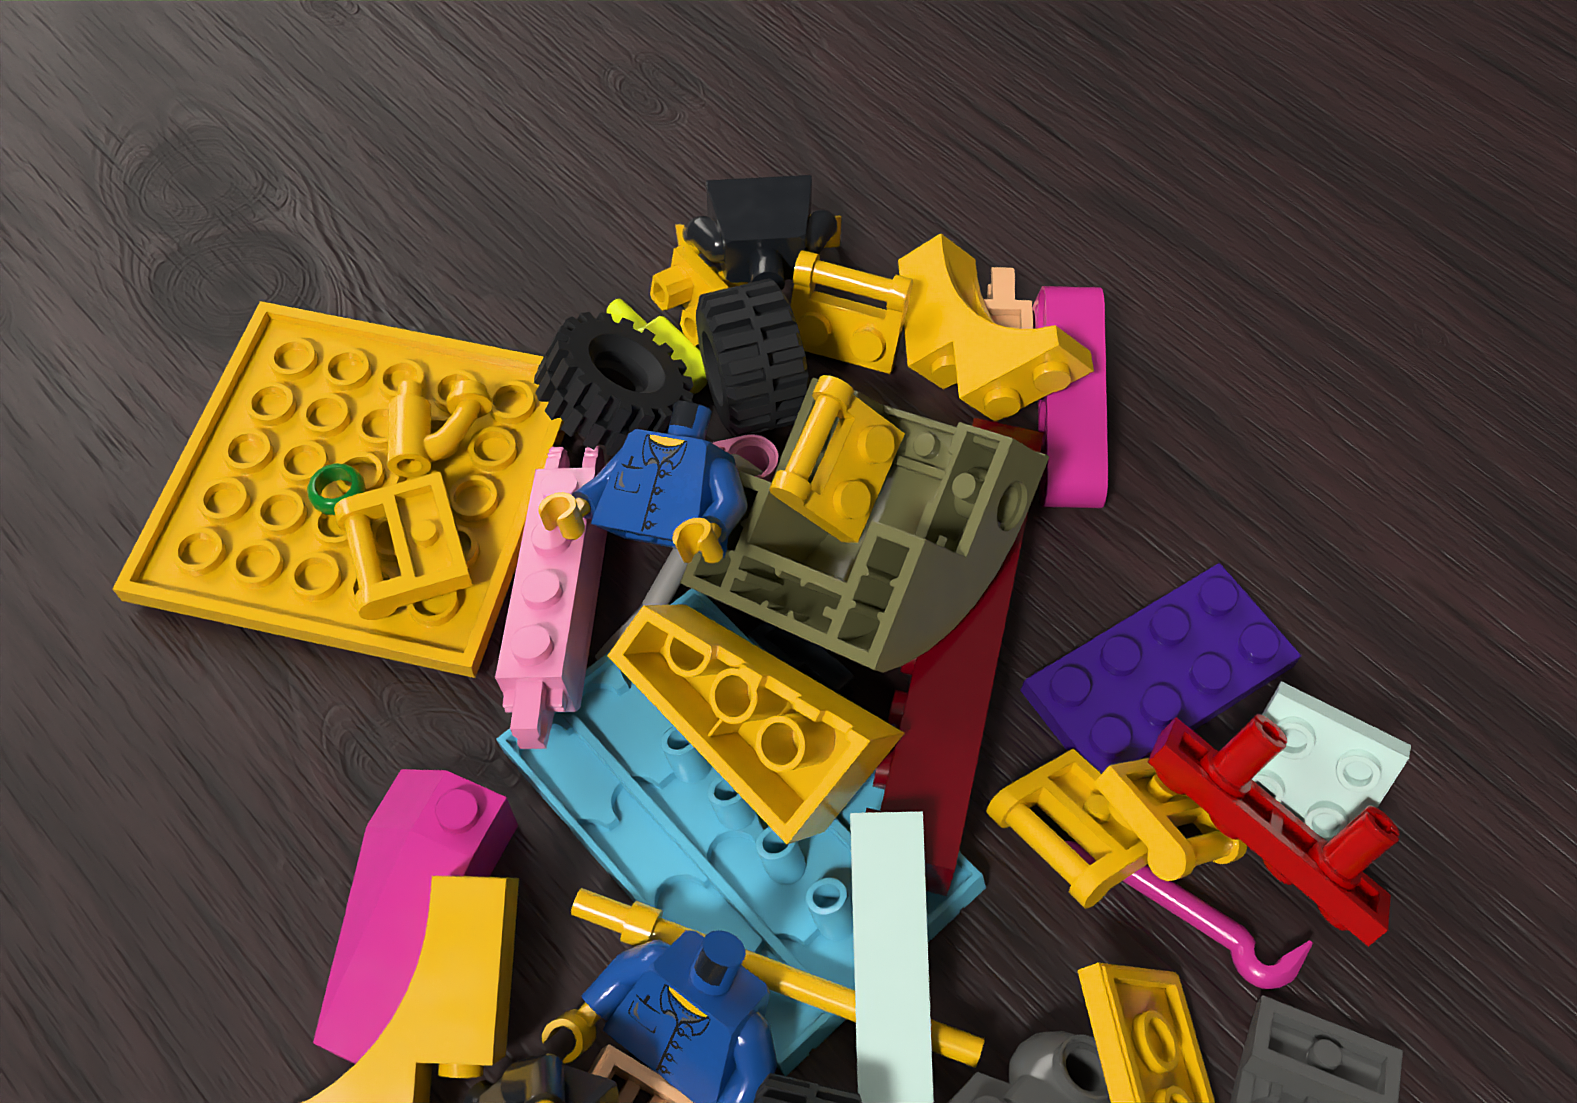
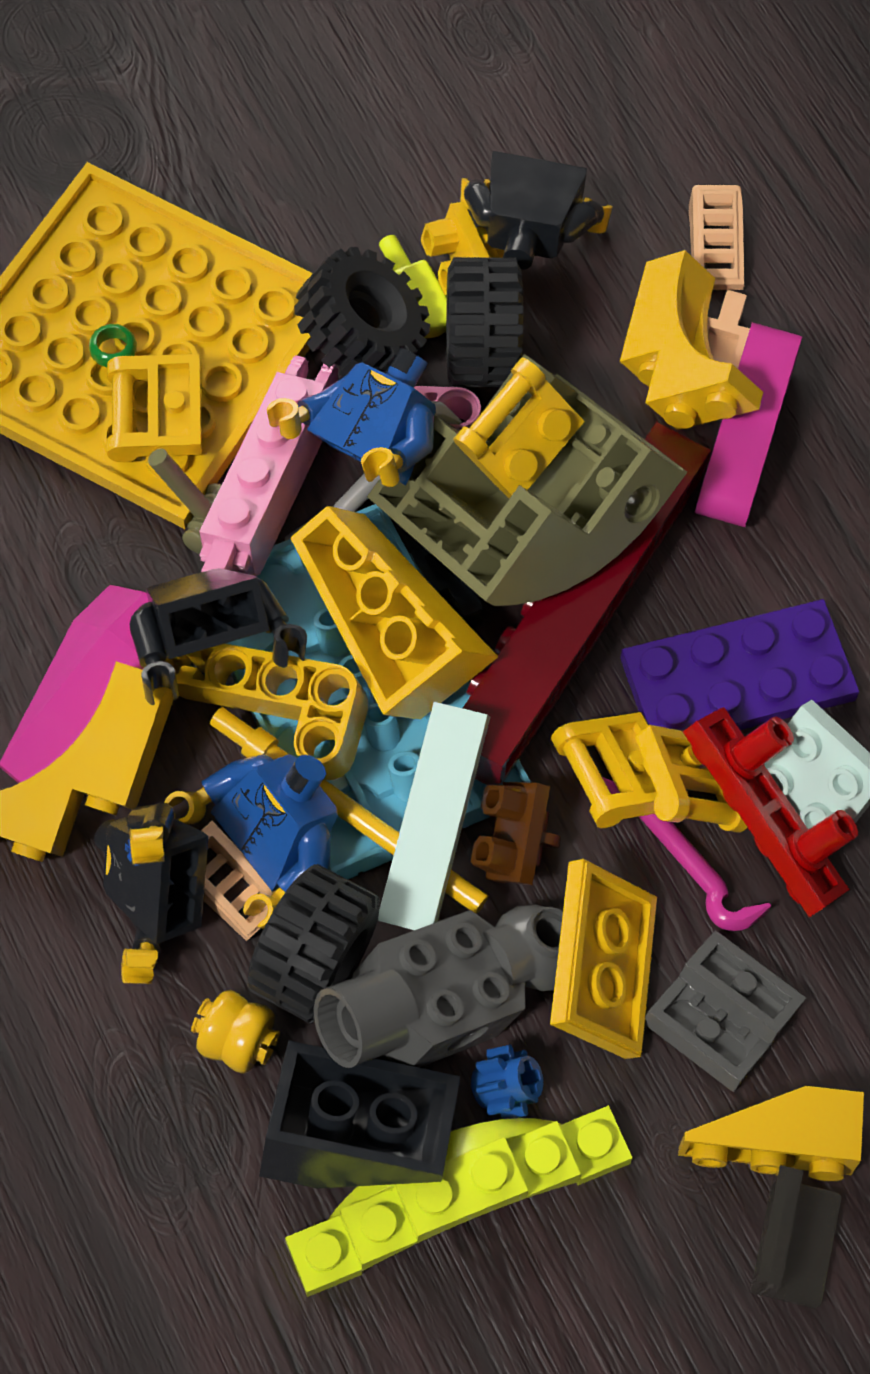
camera: 15 degrees right, 5 degrees up
(409, 425) = (184, 308): yellow plant -> none
(467, 634) = (188, 494): none -> olive piece
(528, 783) = (205, 613): none -> black torso
(622, 858) = (304, 703): none -> yellow beam
(846, 327) = (577, 311): yellow plate -> none
(950, 191) = (718, 207): none -> light nougat slope
(990, 945) = (517, 834): none -> reddish brown hips

